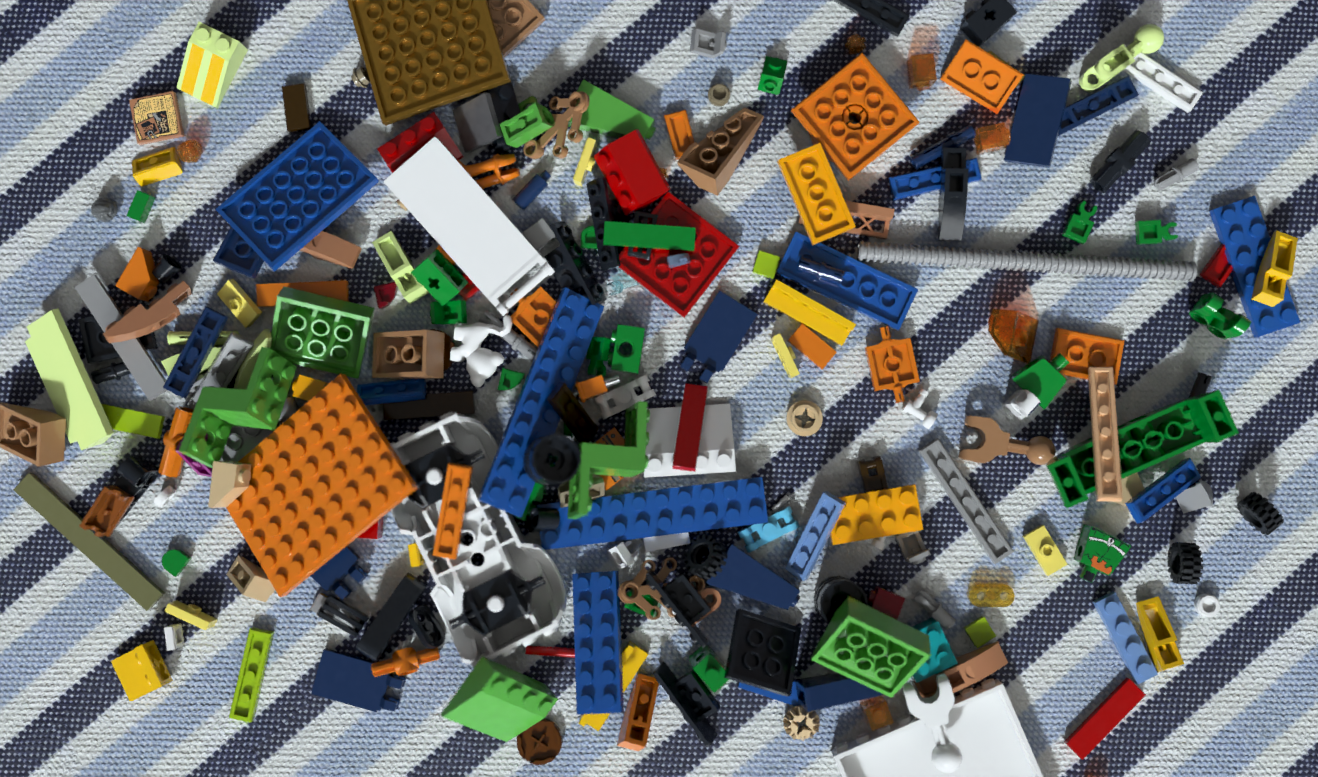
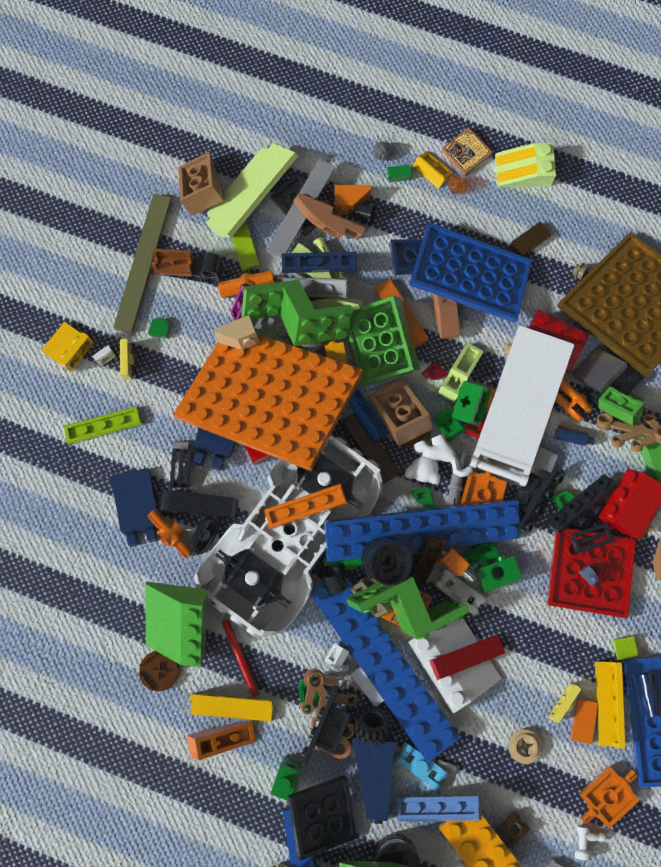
camera: 65 degrees right, 10 degrees down
(111, 372) = (271, 214): black axle -> none
(165, 496) = (202, 296): white tile -> none
(239, 303) = (369, 274): light yellow plate -> none
(250, 579) = (173, 388): tan slope -> none
(416, 557) = (254, 498): yellow tile -> none
(586, 162) = (619, 465): light yellow plate -> none
(597, 643) = (260, 675): blue plate -> none
(620, 286) = (541, 541): clear light blue hand -> none
(649, 236) = (595, 543): green tile -> none
(692, 700) = (253, 778): black bracket -> none
(718, 335) = (549, 639): dark blue tile -> none

